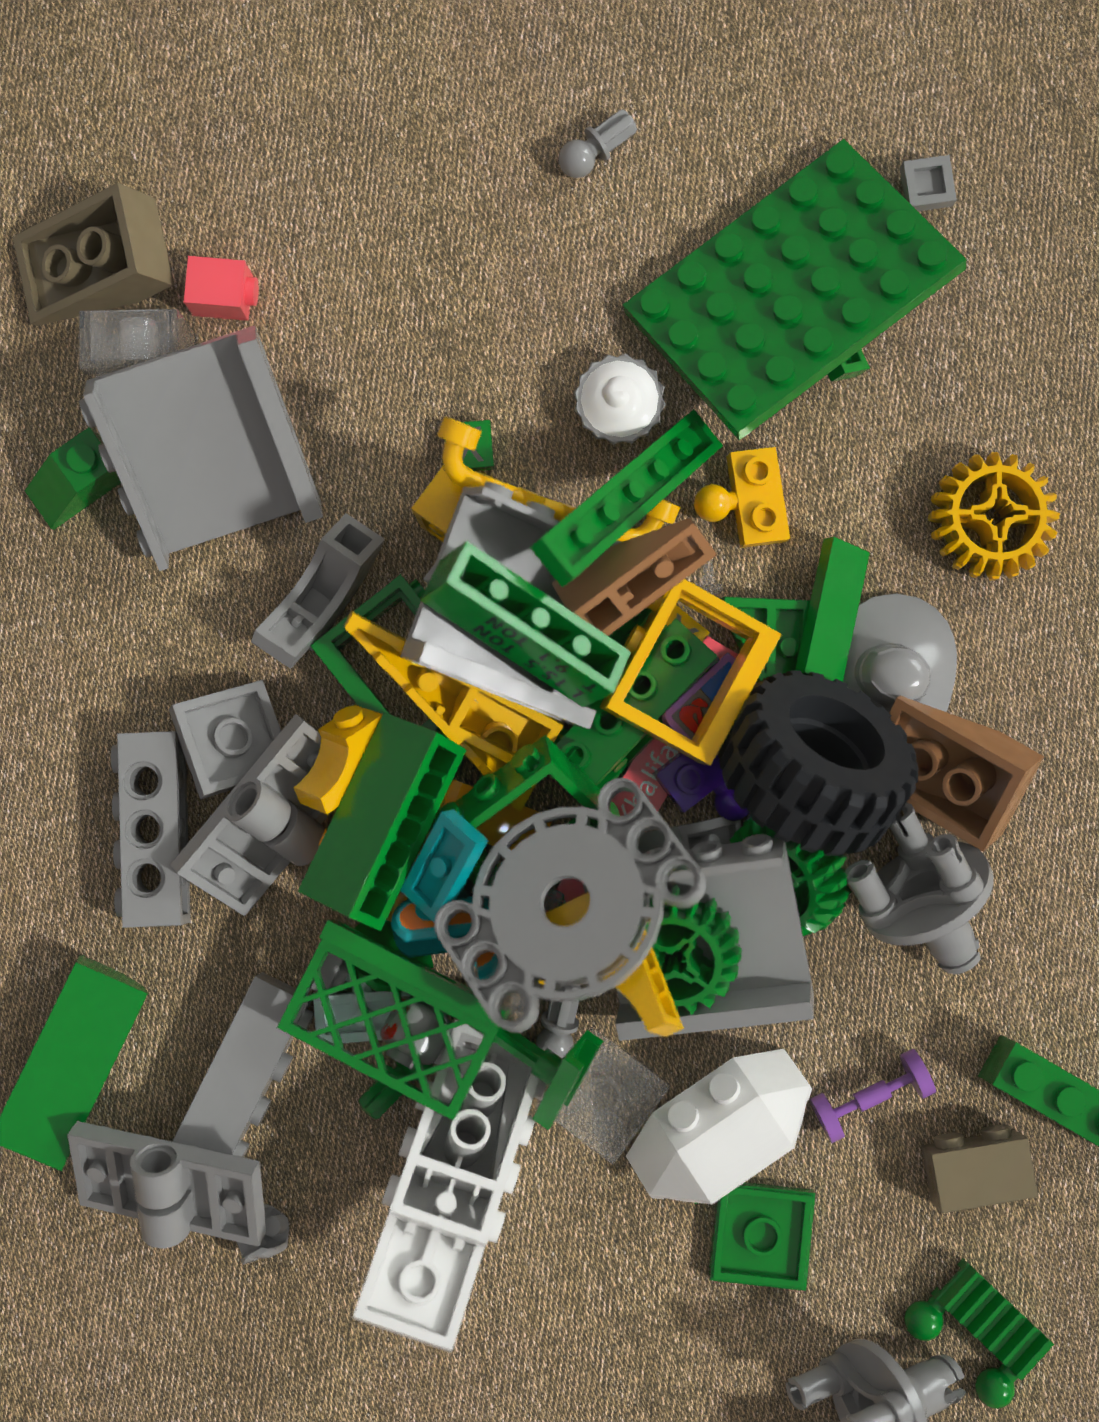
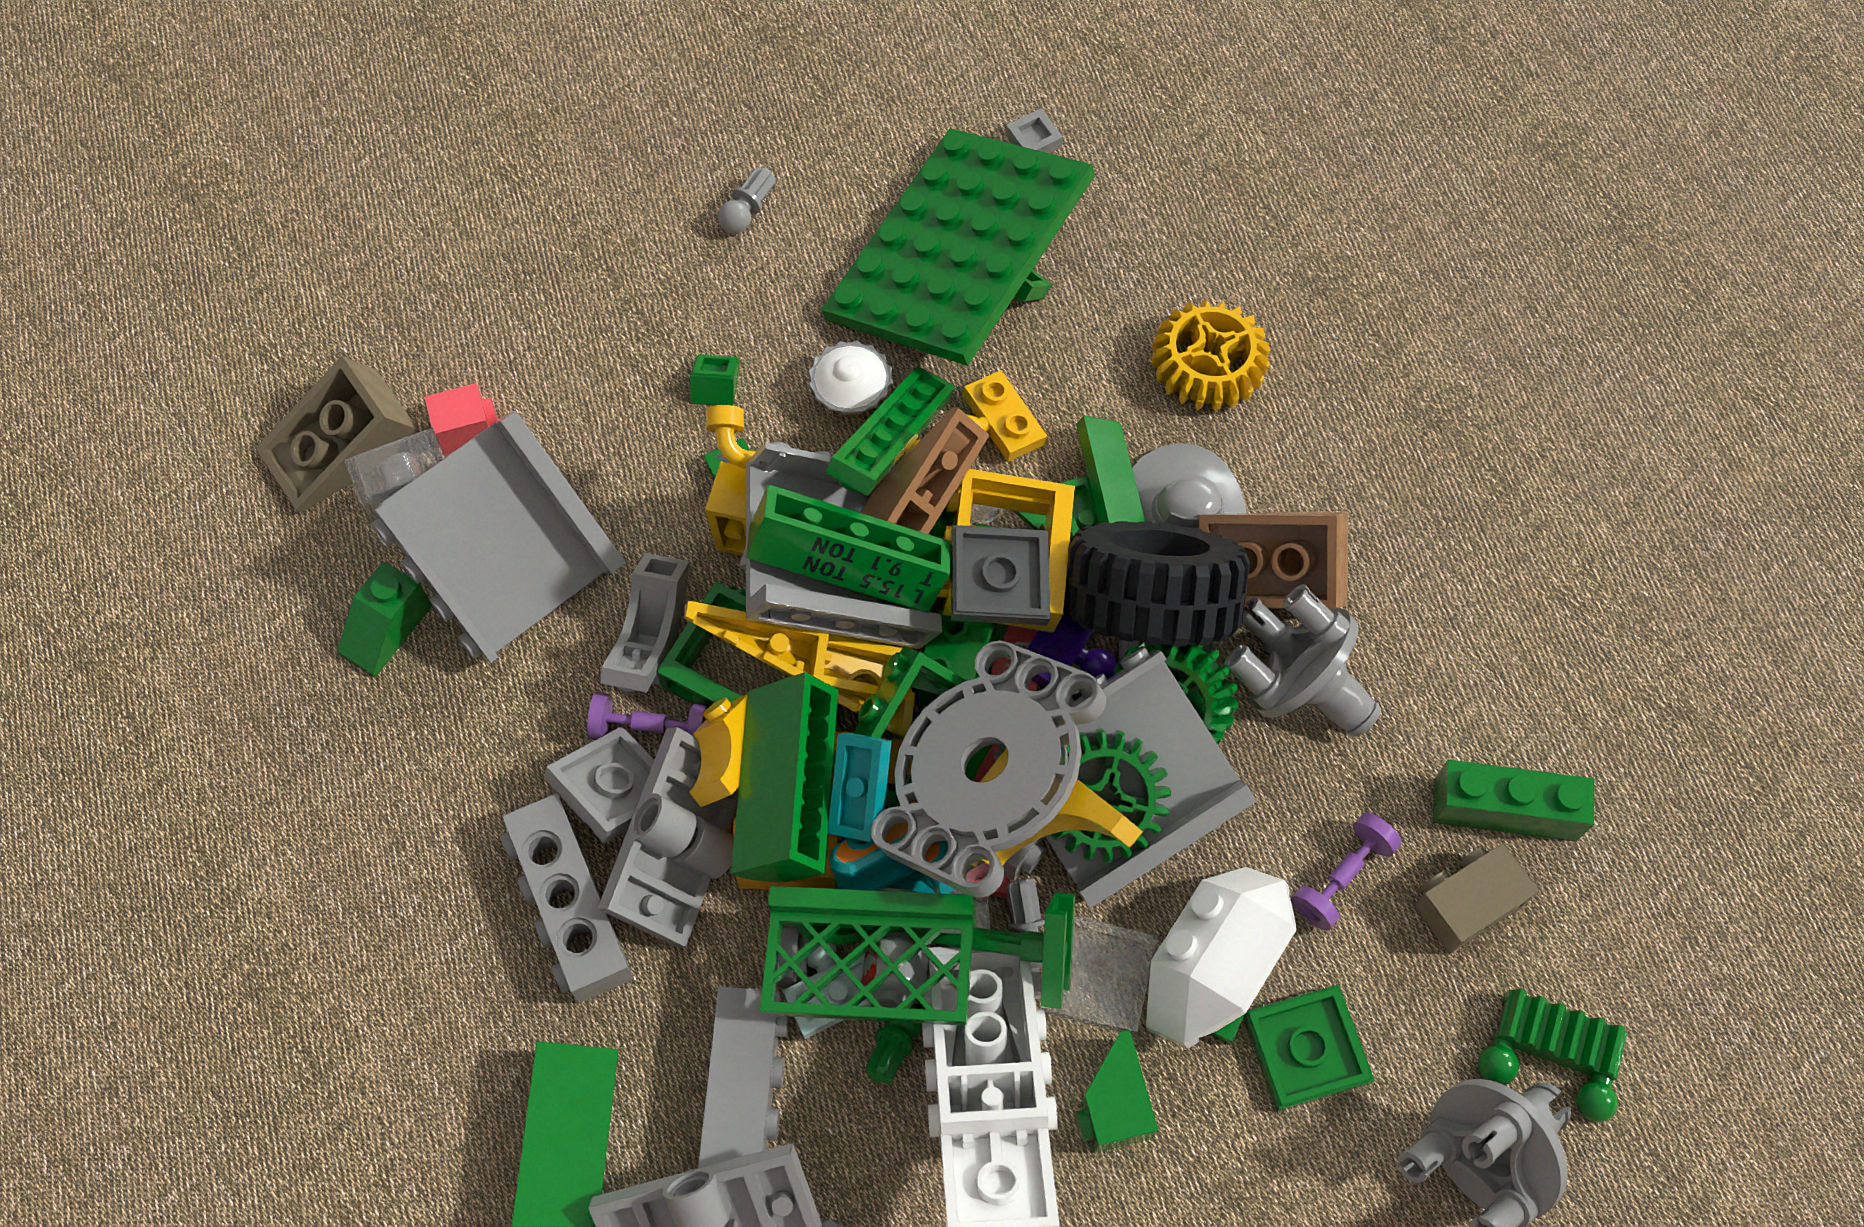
camera: 20 degrees left, 20 degrees down
(247, 662) = (601, 716): none -> medium lavender wheel
(487, 339) = (714, 380): none -> green slope
(568, 1216) = (1117, 1102): none -> green slope
(664, 706) = (999, 575): none -> dark grey tile

